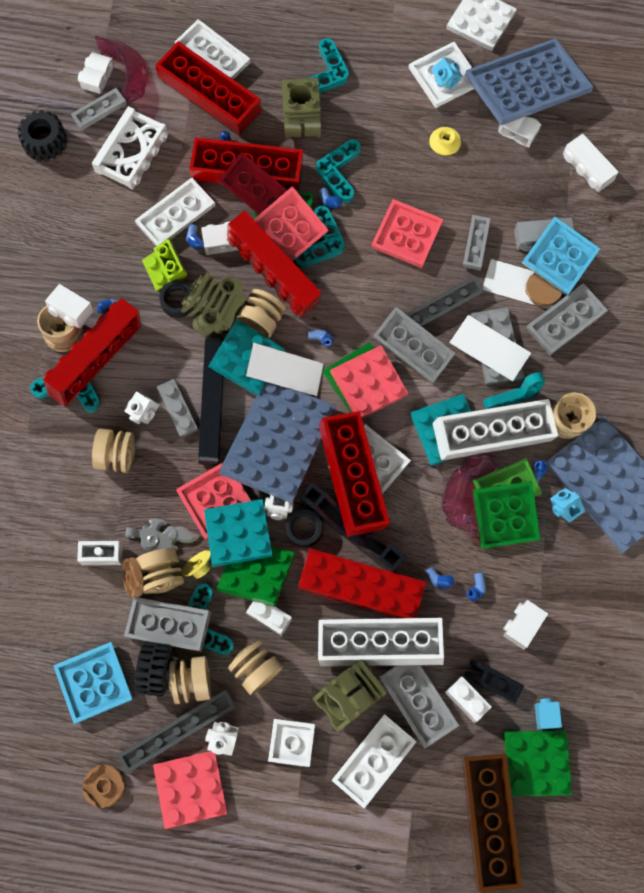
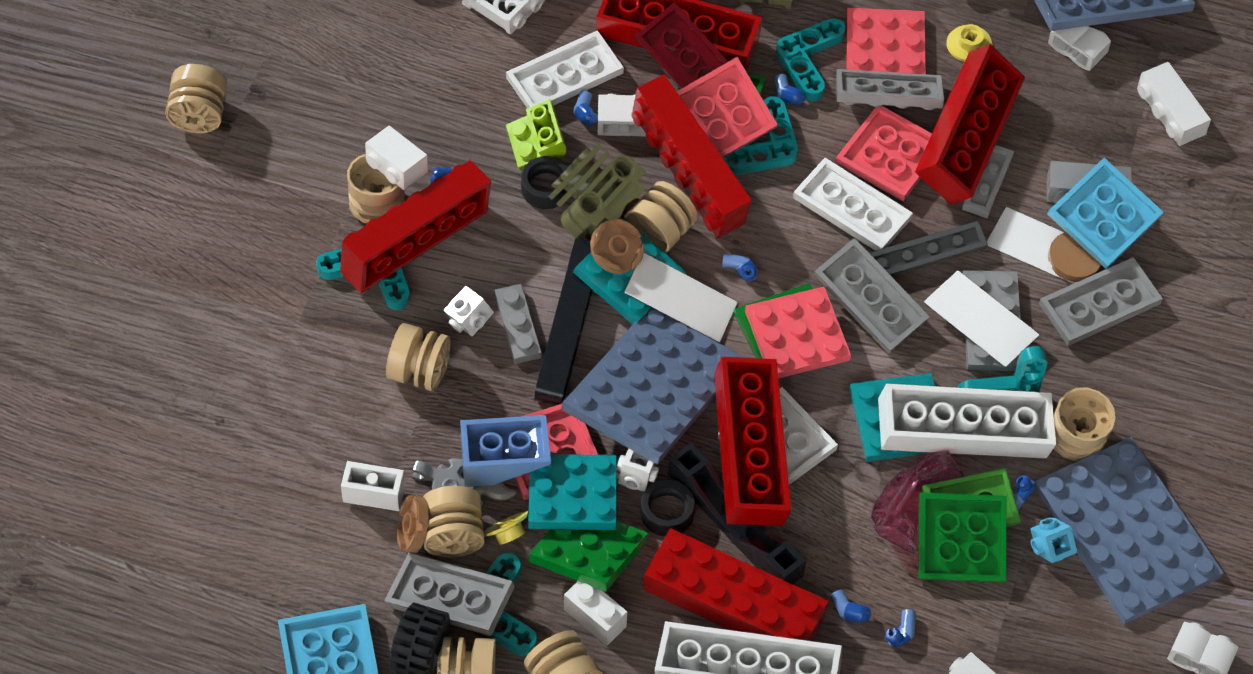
camera: 10 degrees right, 15 degrees down
(184, 510) = (503, 448): none -> medium blue slope
(235, 344) = (617, 246): none -> medium nougat tile
(388, 278) = (852, 205): none -> white plate
(389, 151) = (885, 40): none -> coral plate
(398, 186) = (889, 88): none -> light grey plate
(458, 205) = (970, 124): none -> red brick

